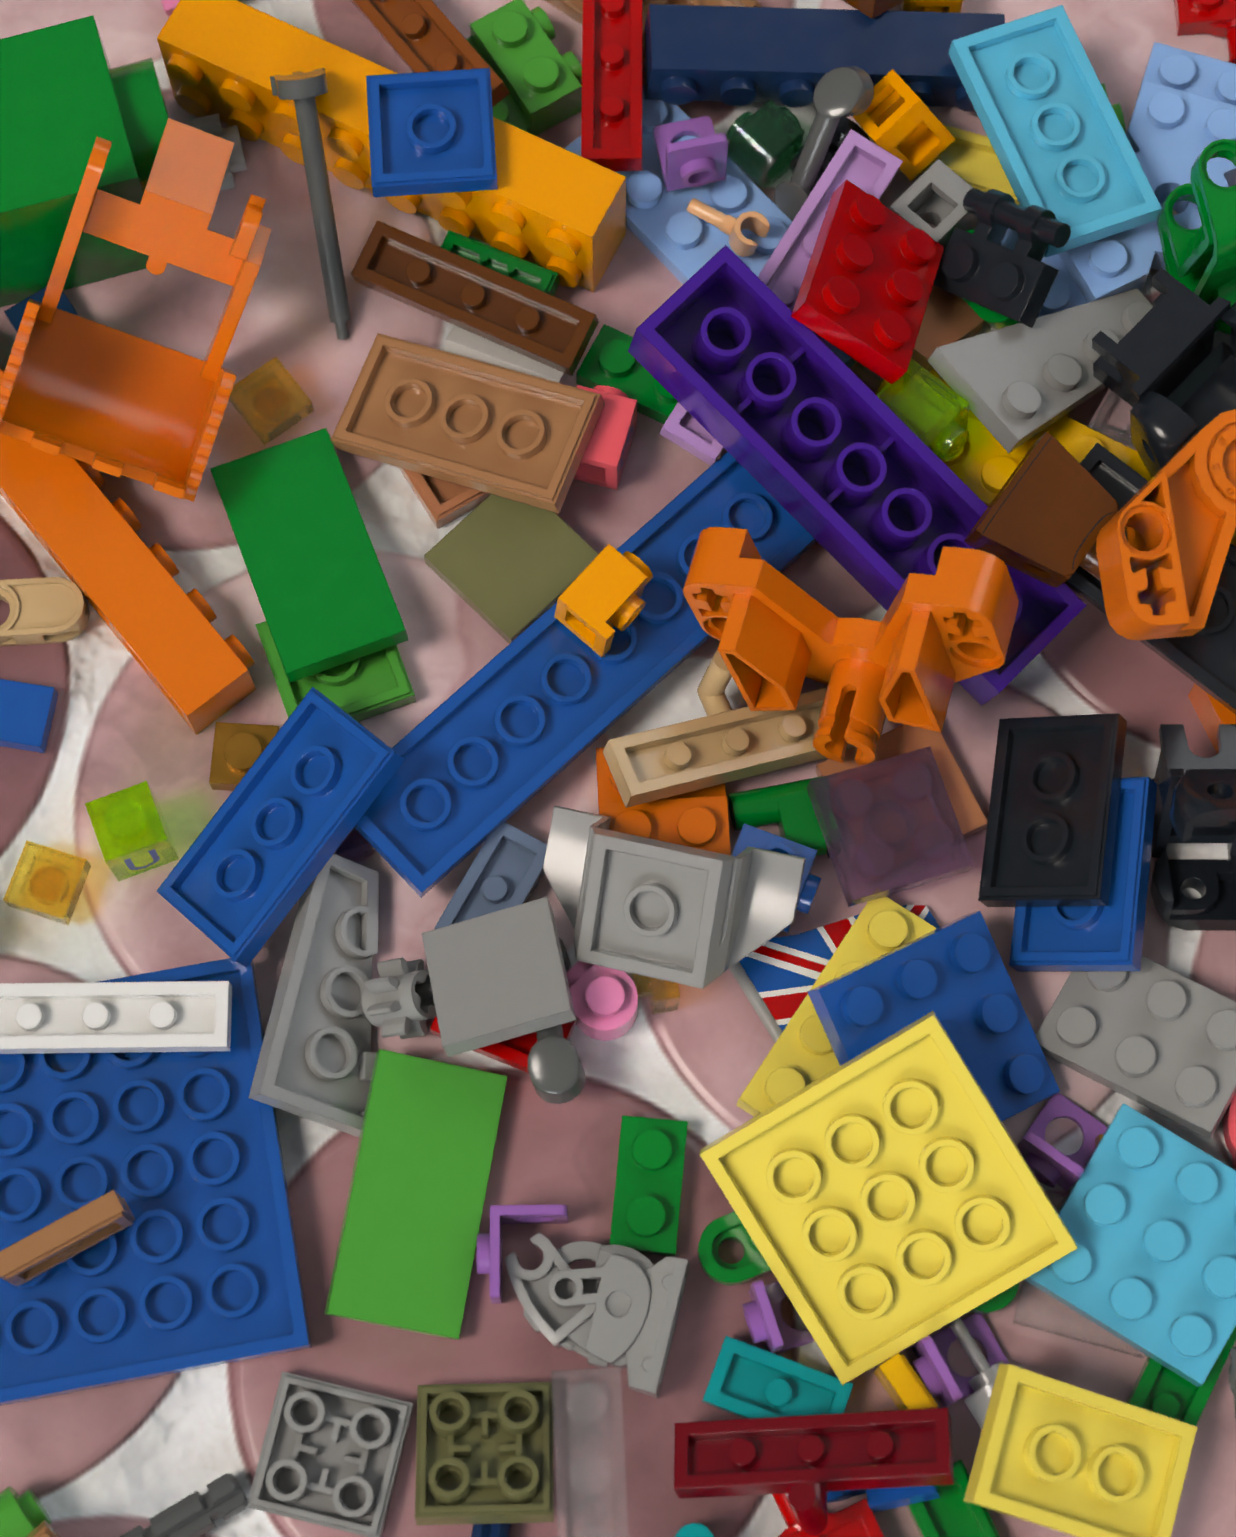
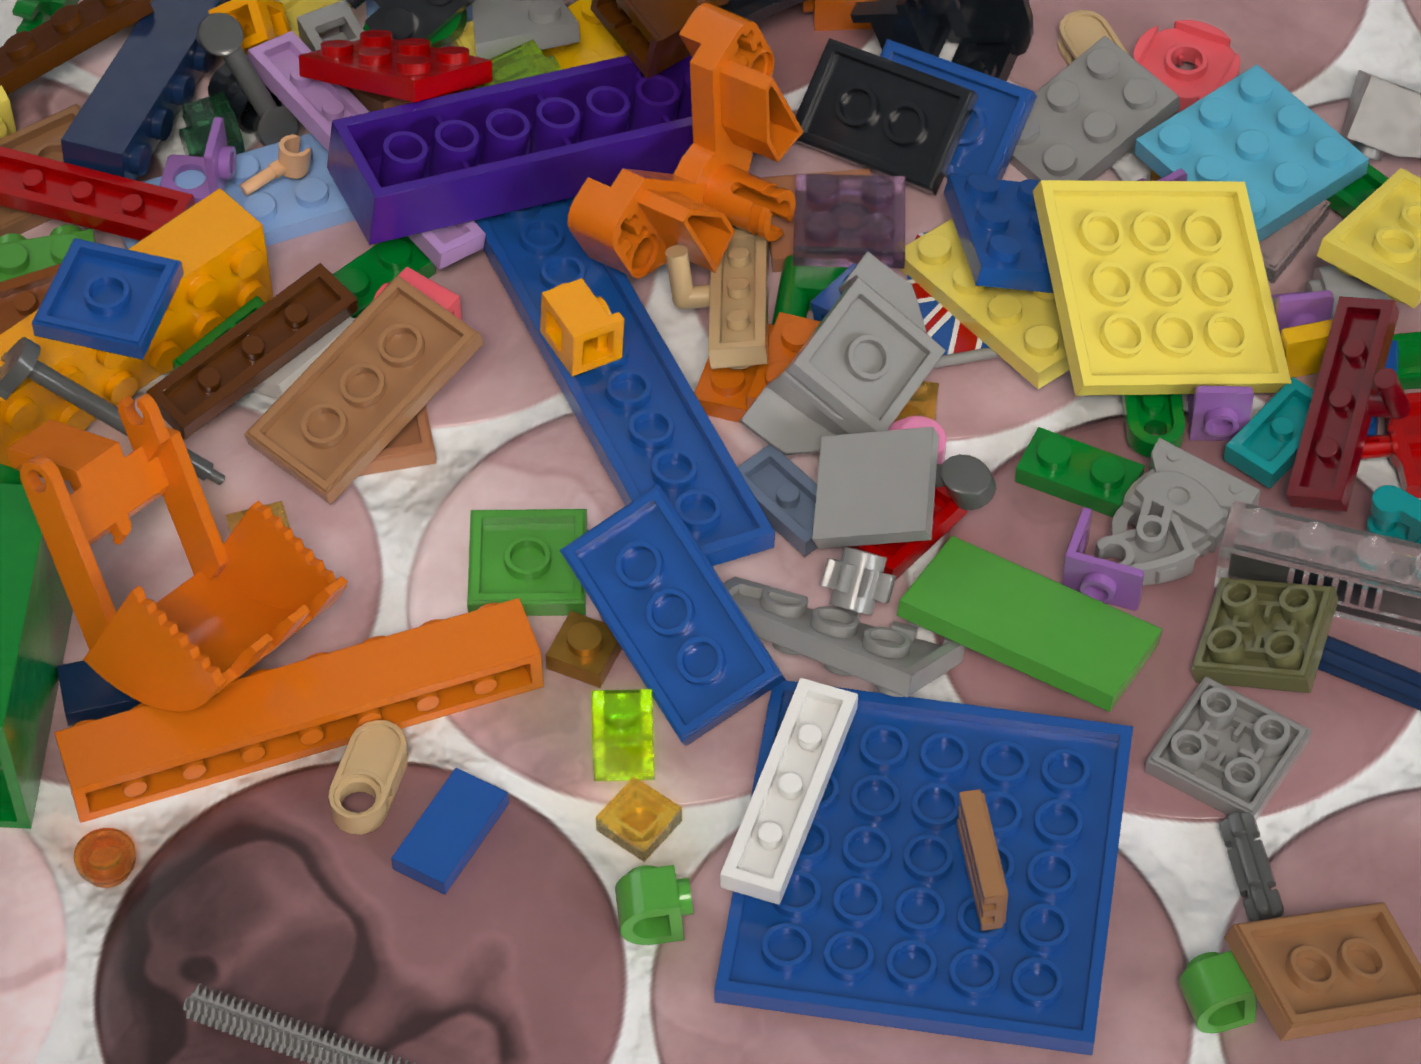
camera: 70 degrees left, 20 degrees down
(309, 555) = (429, 541): green tile -> none
(510, 562) = (500, 407): olive tile -> none

